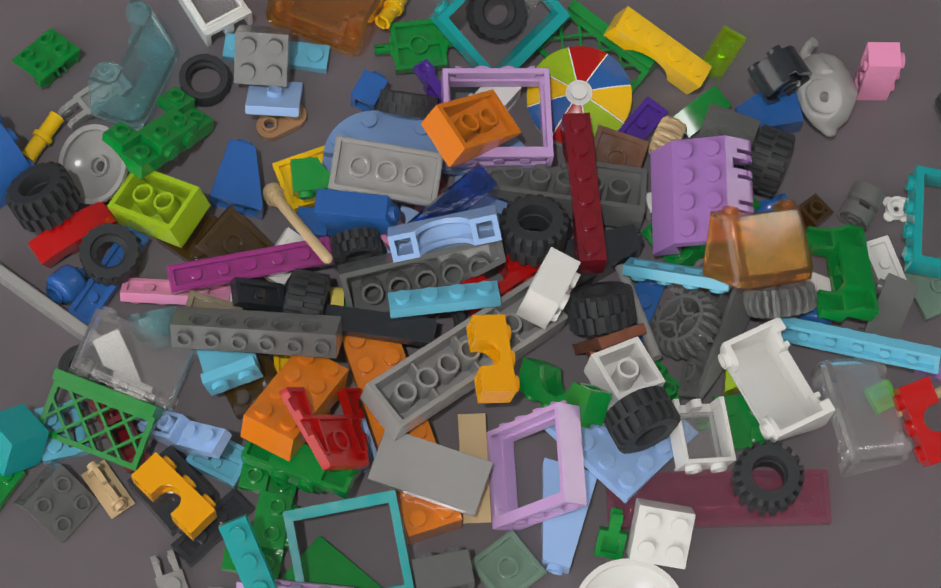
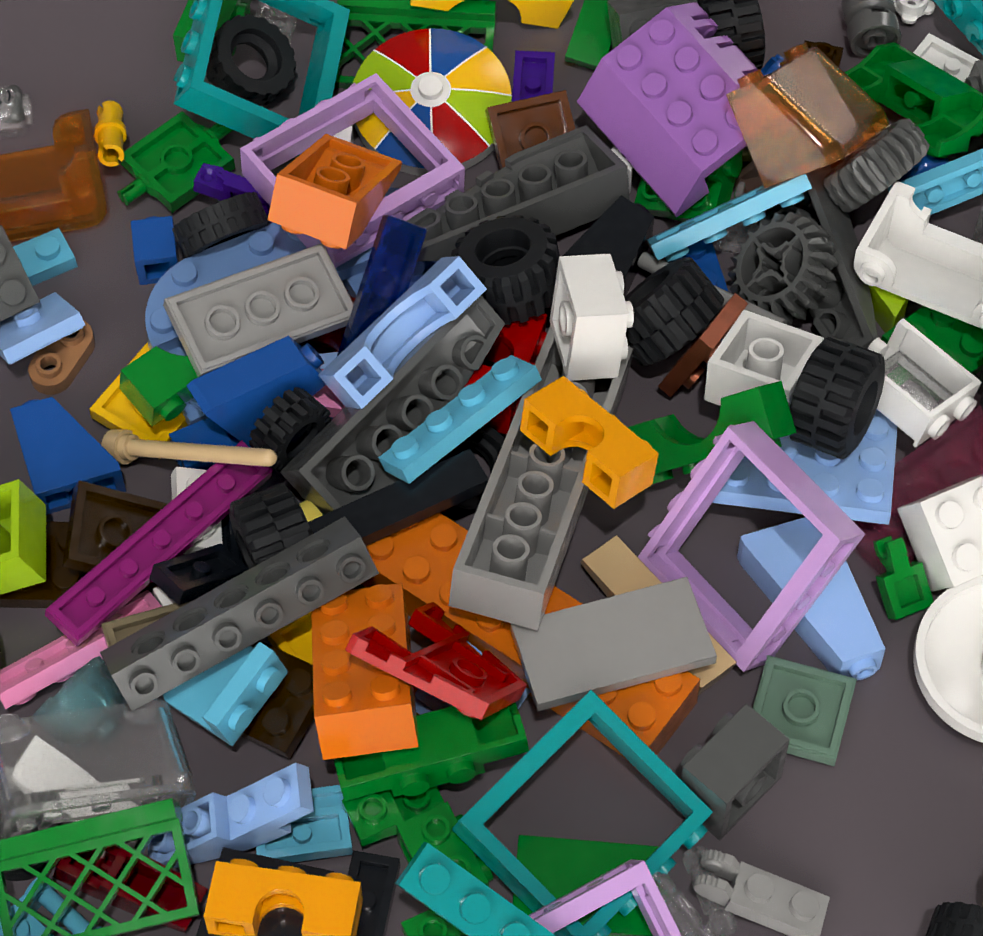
camera: 30 degrees left, 10 degrees down
(584, 191) = (494, 150): dark red arch -> none
(667, 130) = (575, 70): tan gear -> none

